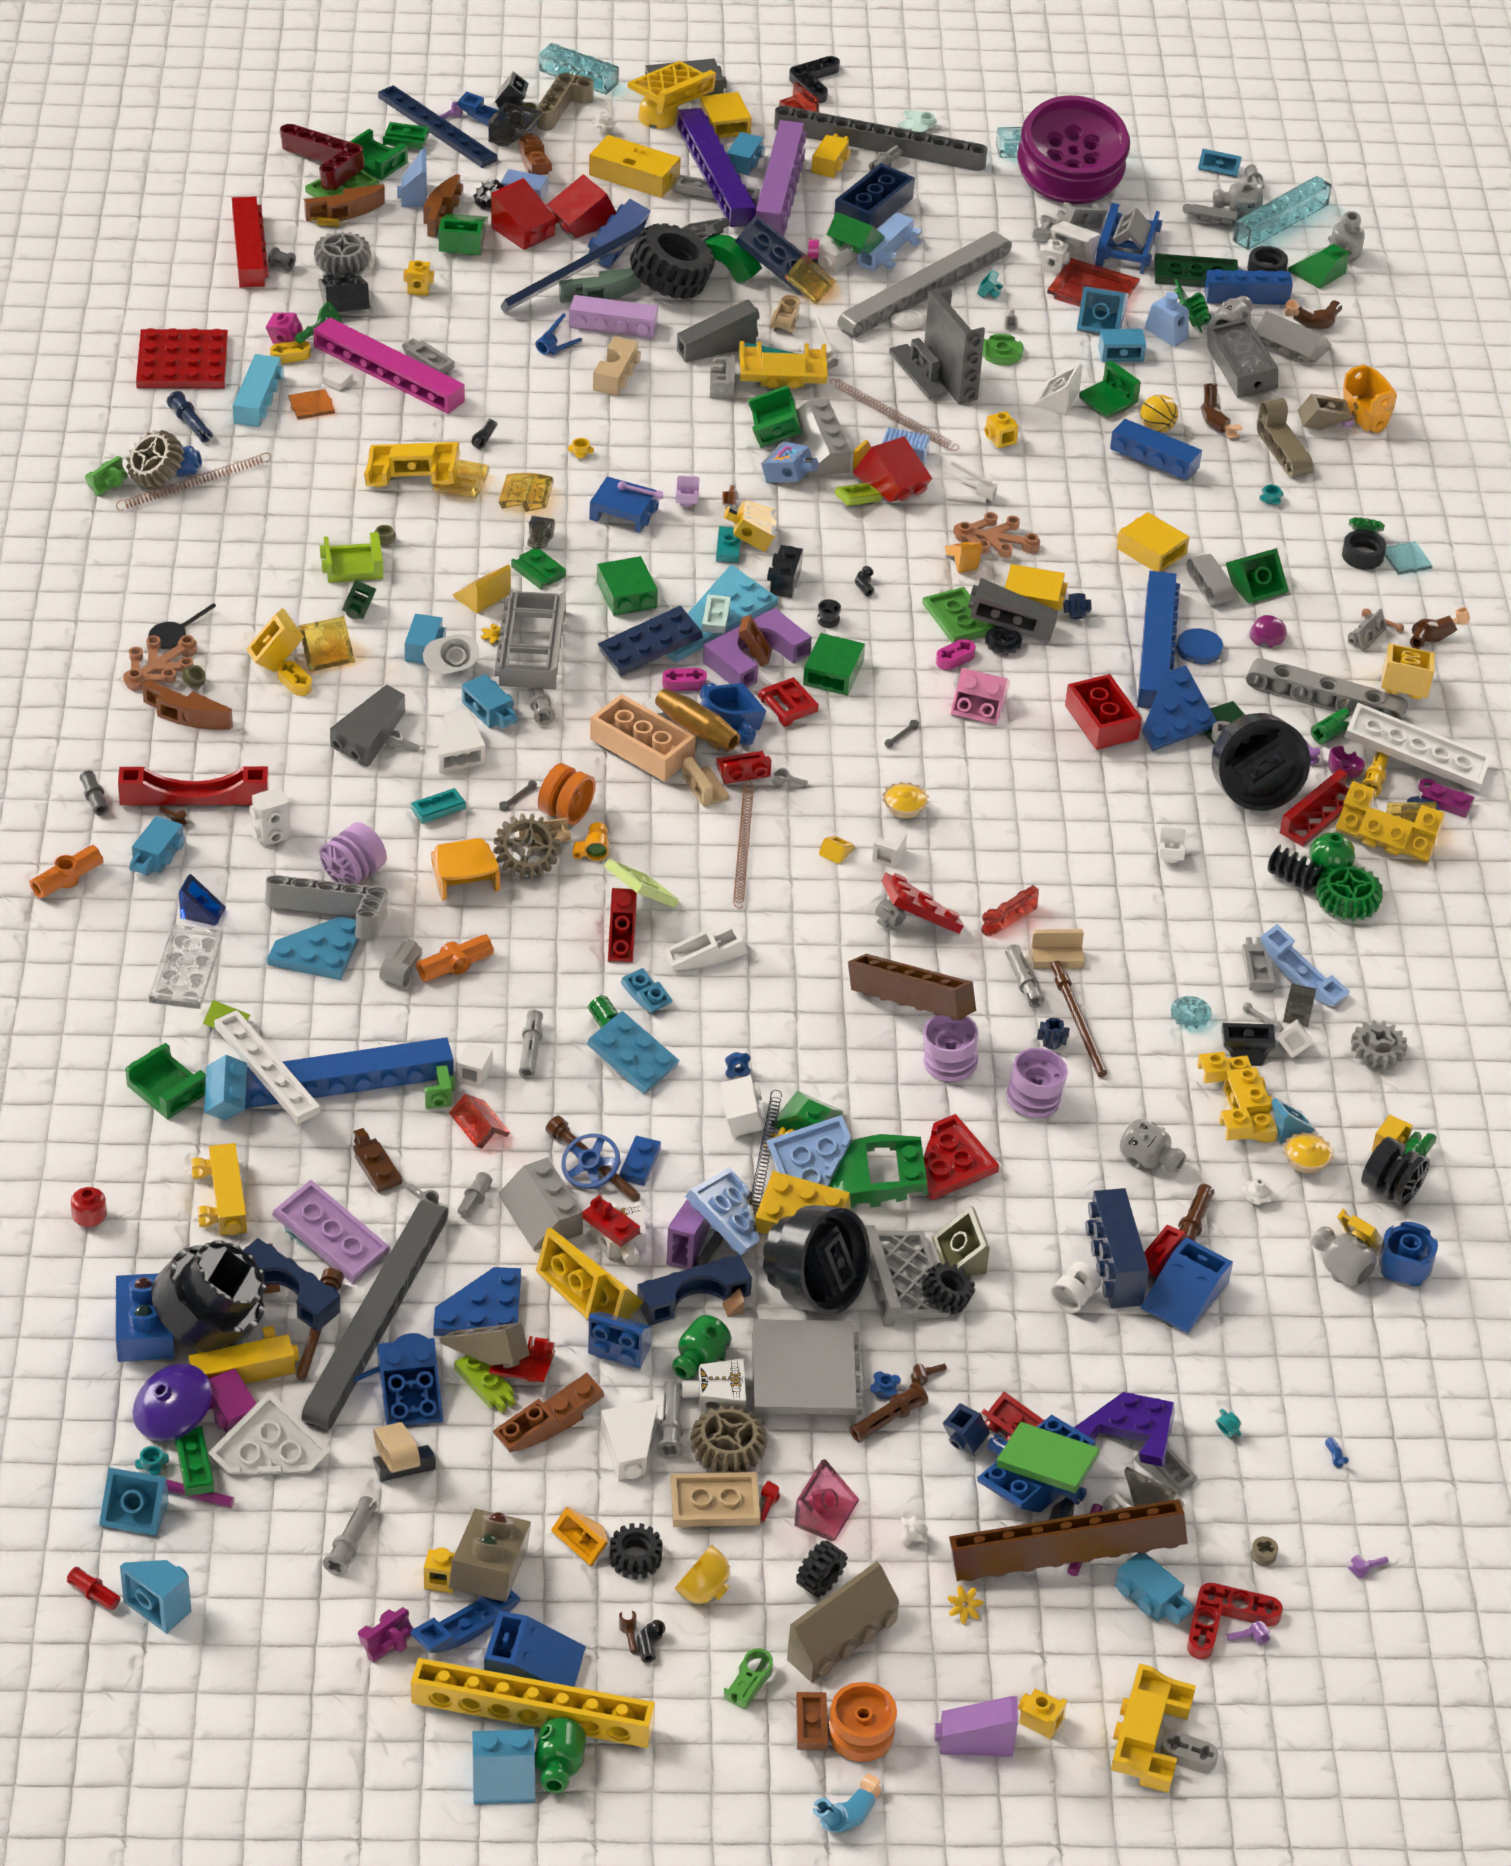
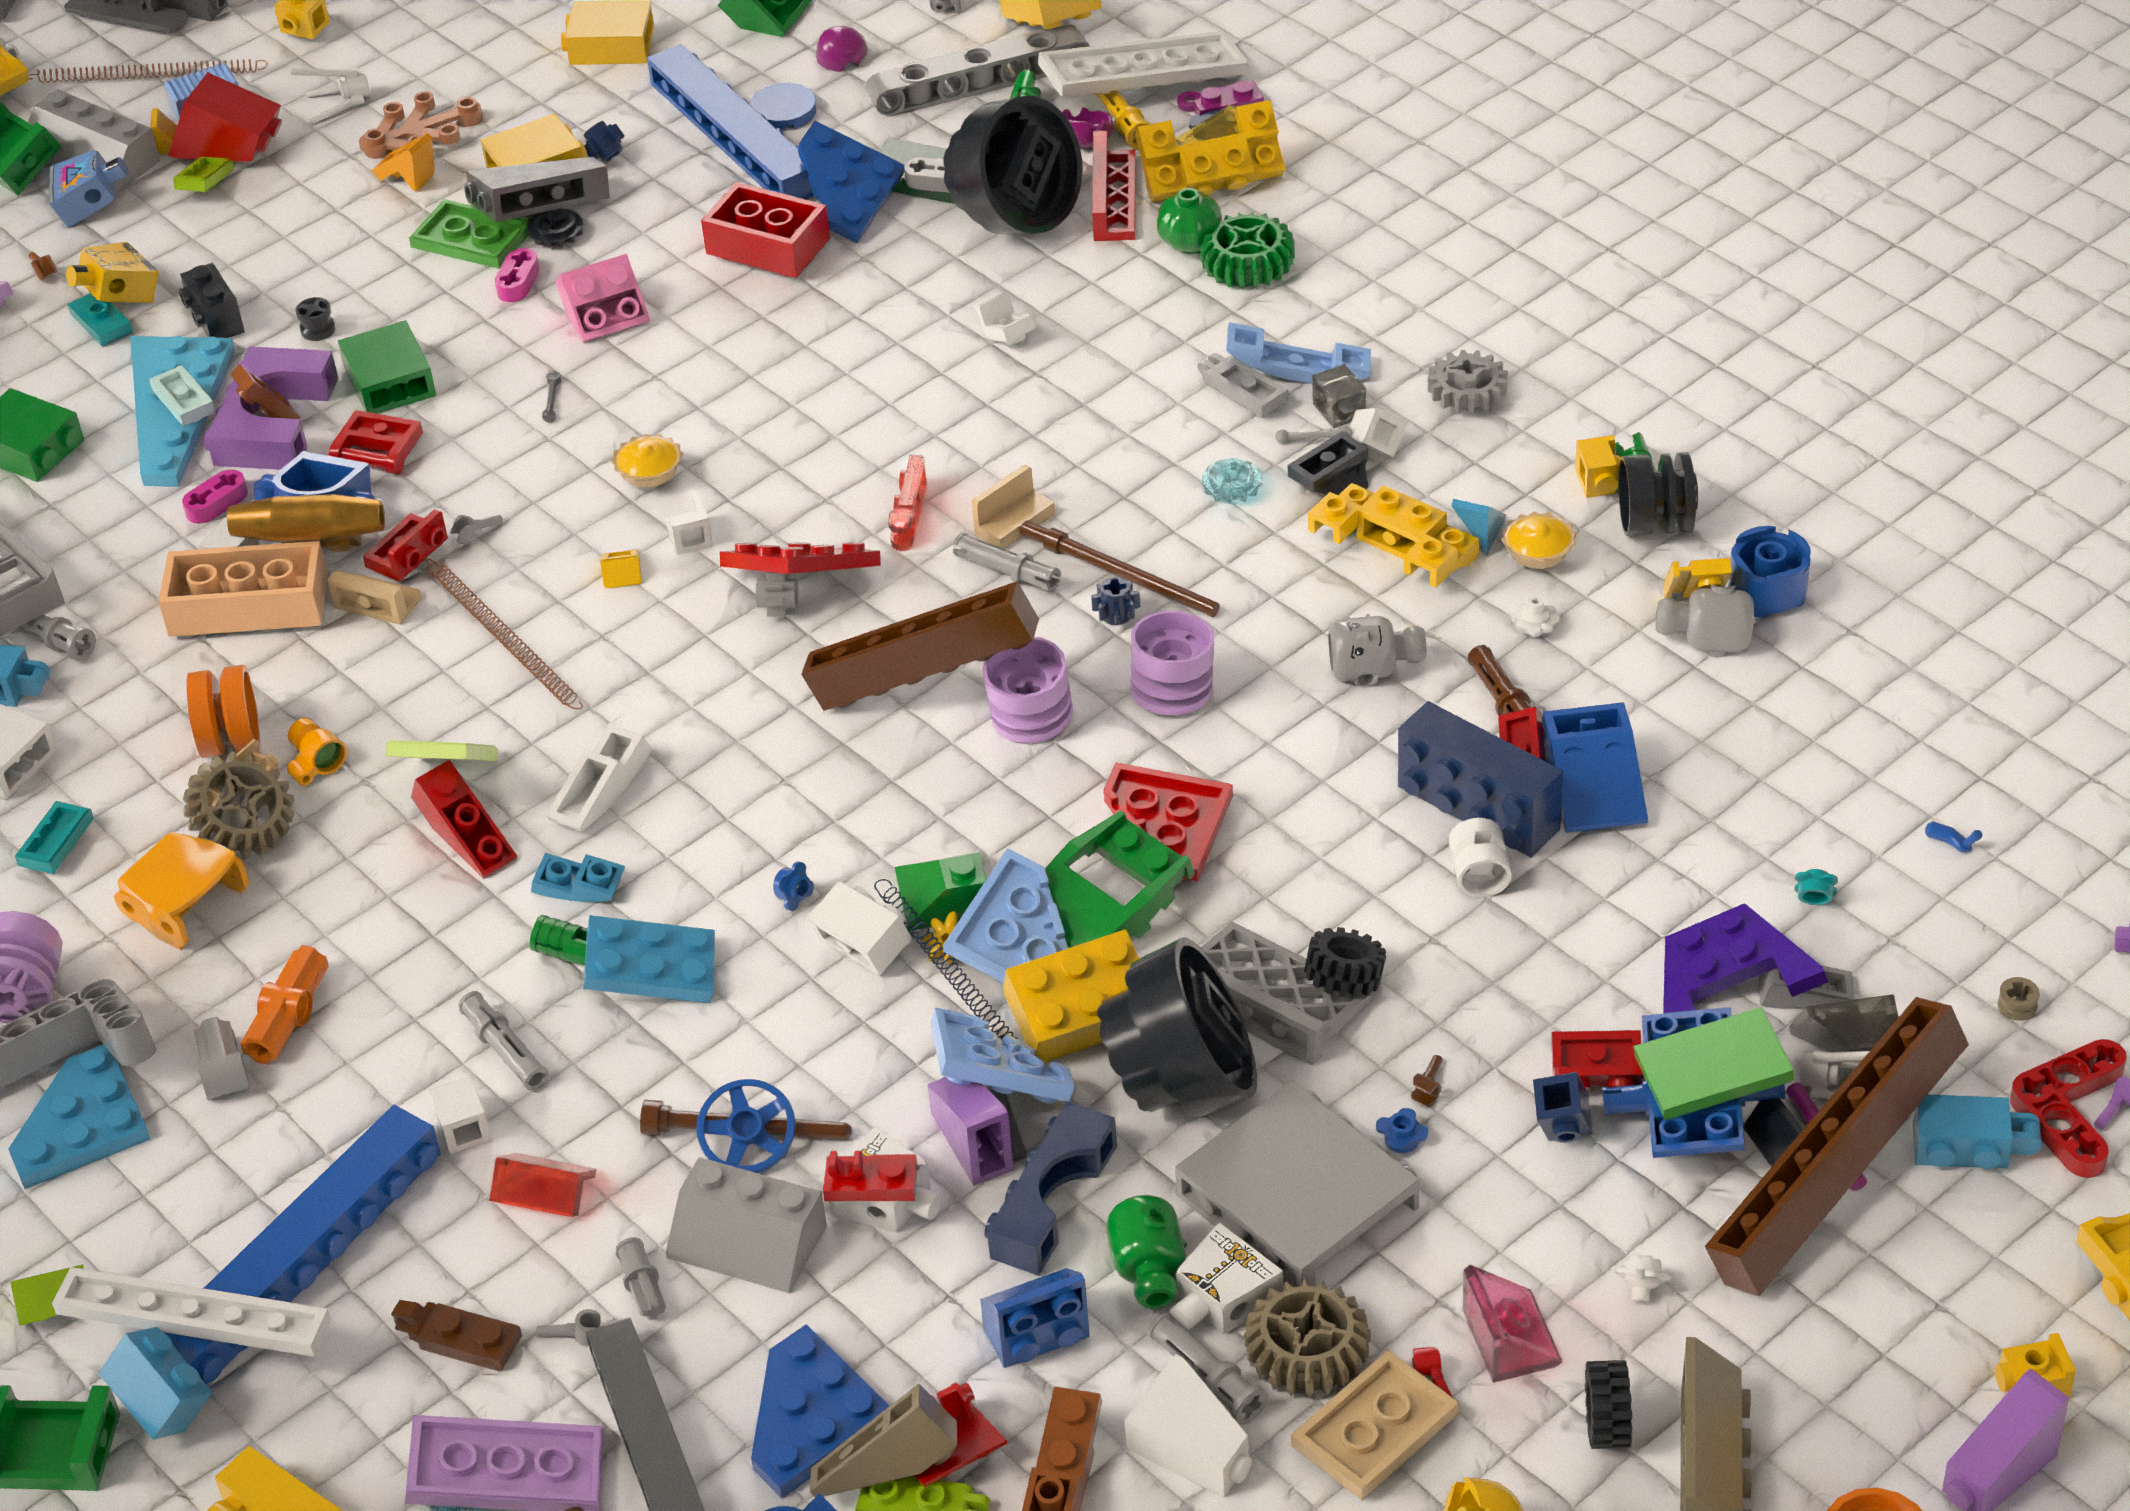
camera: 35 degrees left, 0 degrees up
(440, 1095) = (452, 1175): bright green bracket -> none
(504, 805) = (141, 782): dark grey hinge -> none
(582, 1280) = (910, 1277): yellow slope -> none
(640, 1160) = (801, 1082): blue plate -> none
(650, 640) = (125, 477): dark blue plate -> none
(734, 1304) = (1115, 1168): medium nougat piece -> none
(863, 581) = (315, 263): black arm -> none
(899, 1406) = (1449, 1144): reddish brown pin -> none
(963, 1243) = (1300, 899): olive slope -> none
(968, 1600) = (1799, 1316): yellow plant -> none
(1210, 579) = (718, 32): light grey beam -> none
(1294, 870) = (1166, 260): black piece -> none

